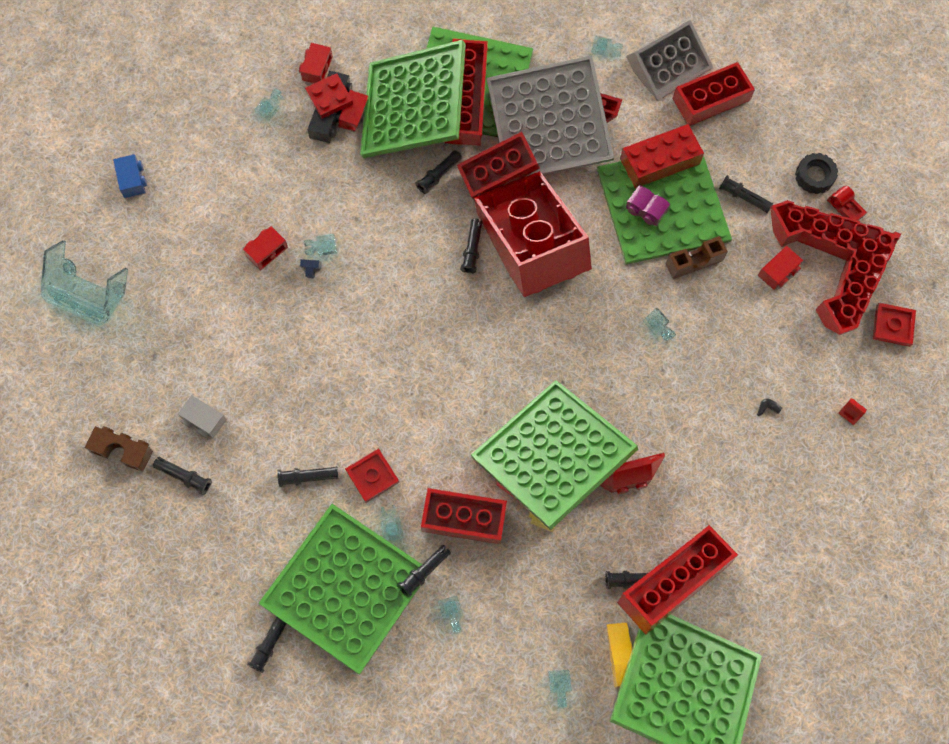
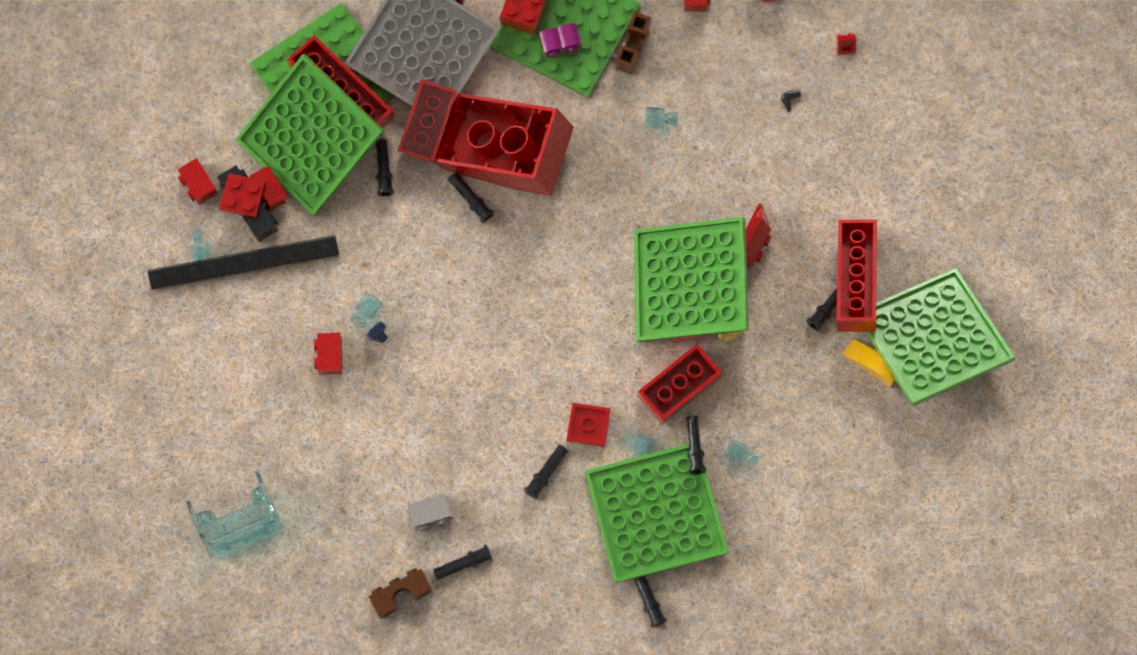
camera: 45 degrees left, 5 degrees up
(129, 176) = (166, 408): blue brick -> none
(285, 139) = (243, 262): none -> black plate
(560, 683) = (855, 421): clear light blue plate -> none

